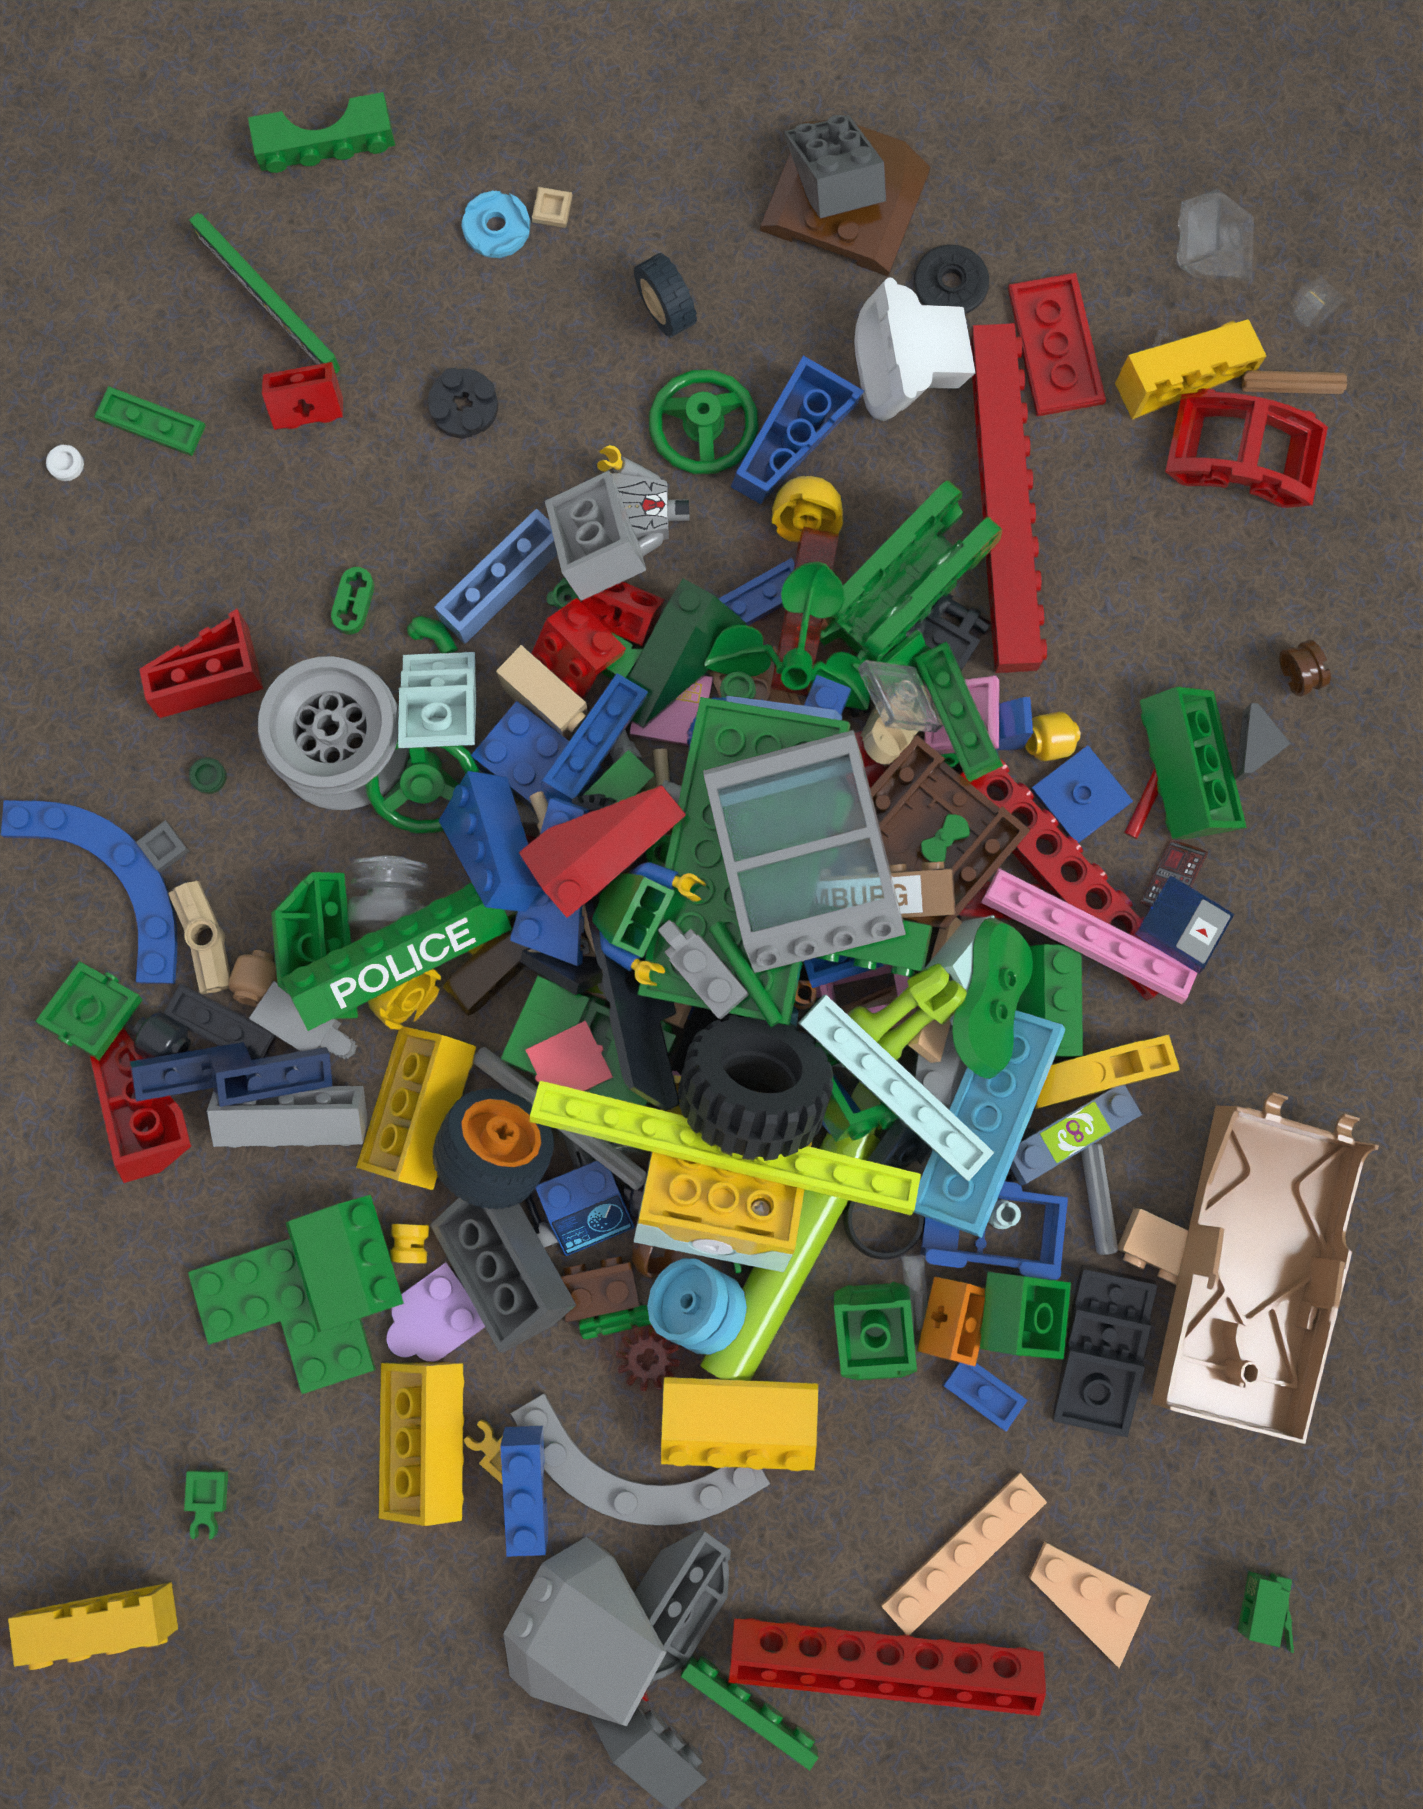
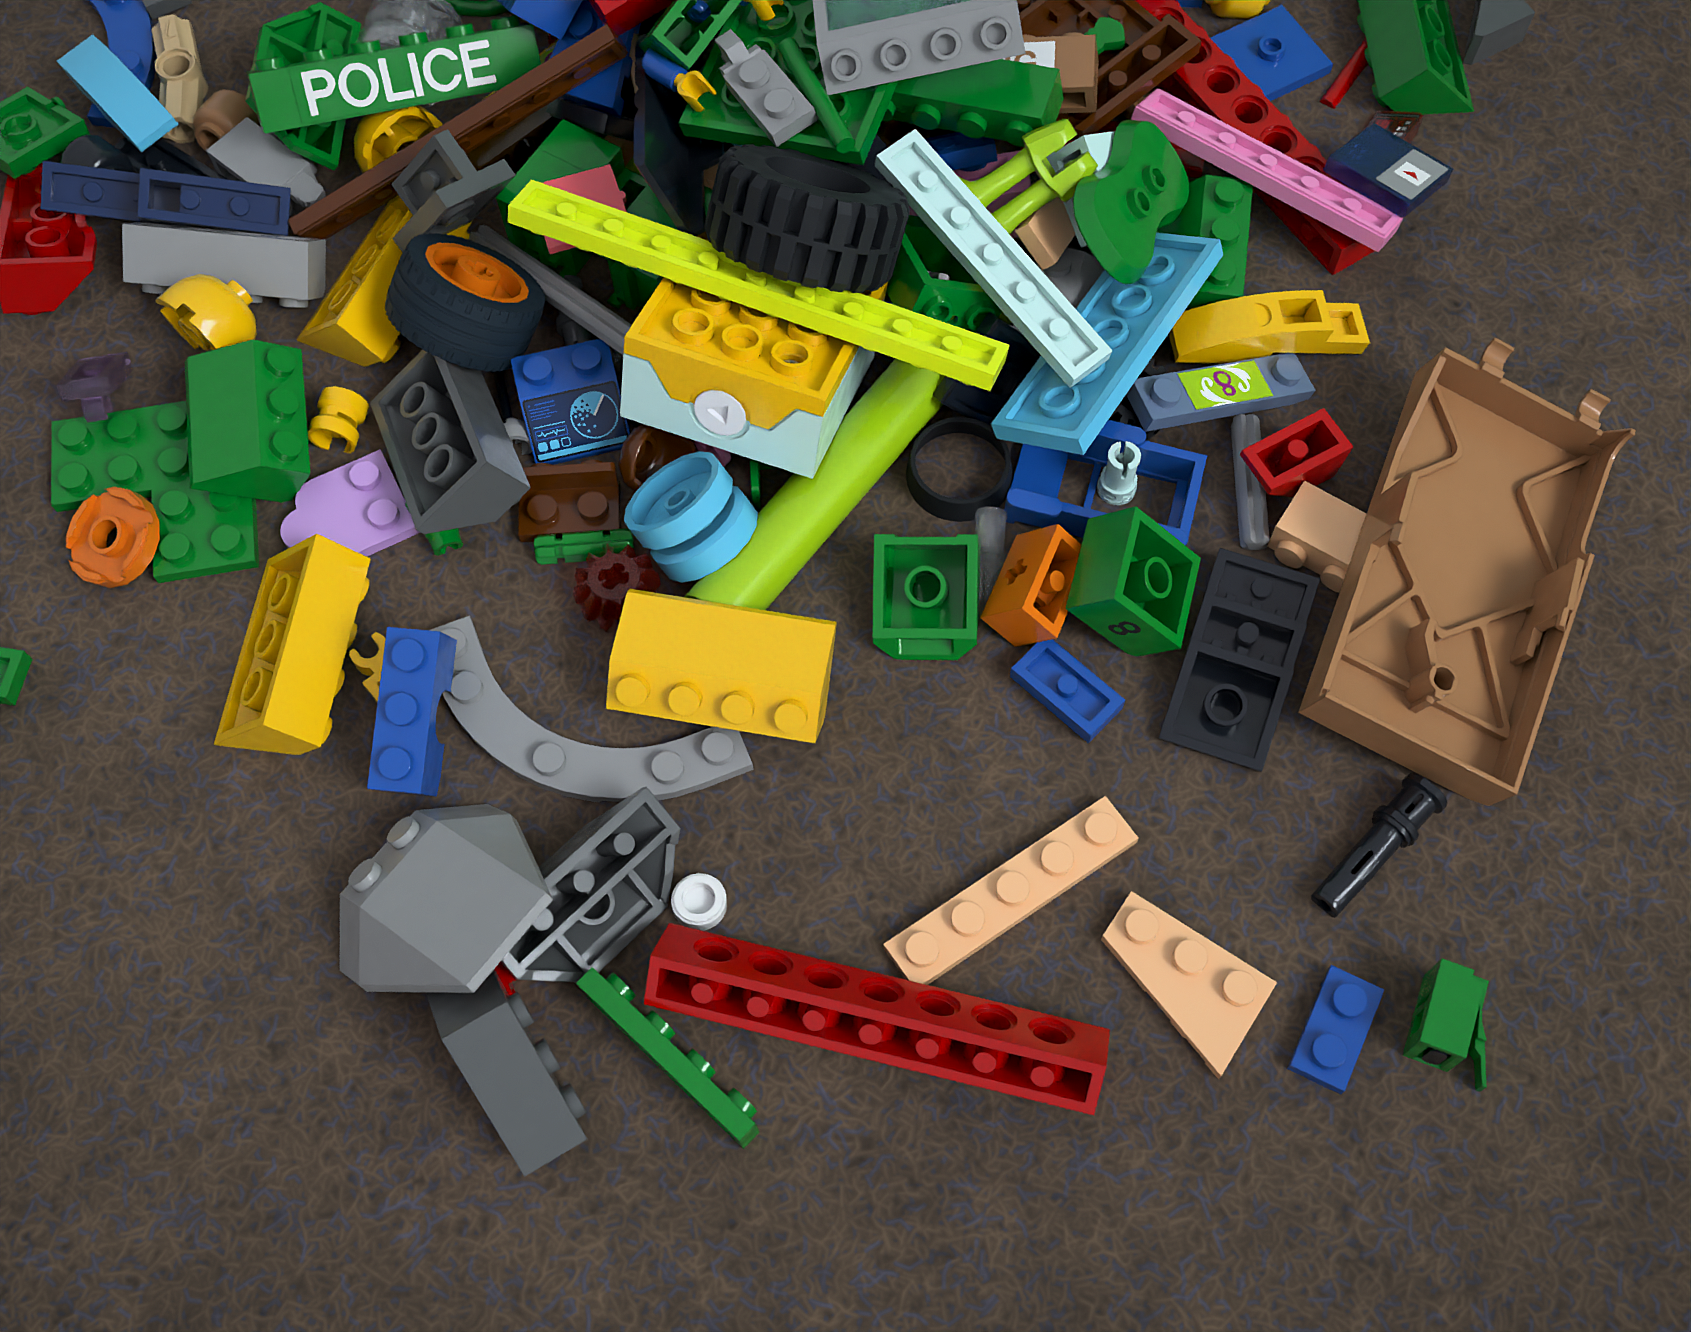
camera: 10 degrees right, 15 degrees down
(164, 975) = (117, 93): none -> medium azure slope
(216, 1239) = (93, 381): none -> clear purple plate
(282, 1363) = (135, 540): none -> orange tile
(295, 1175) = (209, 311): none -> yellow cylinder
(458, 999) = (469, 130): none -> reddish brown tile
(464, 1068) = (445, 188): none -> dark grey bracket
(749, 1591) = (699, 901): none -> white tile
(1132, 1190) = (1298, 453): none -> red slope
(1192, 1621) = (1336, 1029): none -> blue plate
(1221, 1470) = (1390, 830): none -> black pin

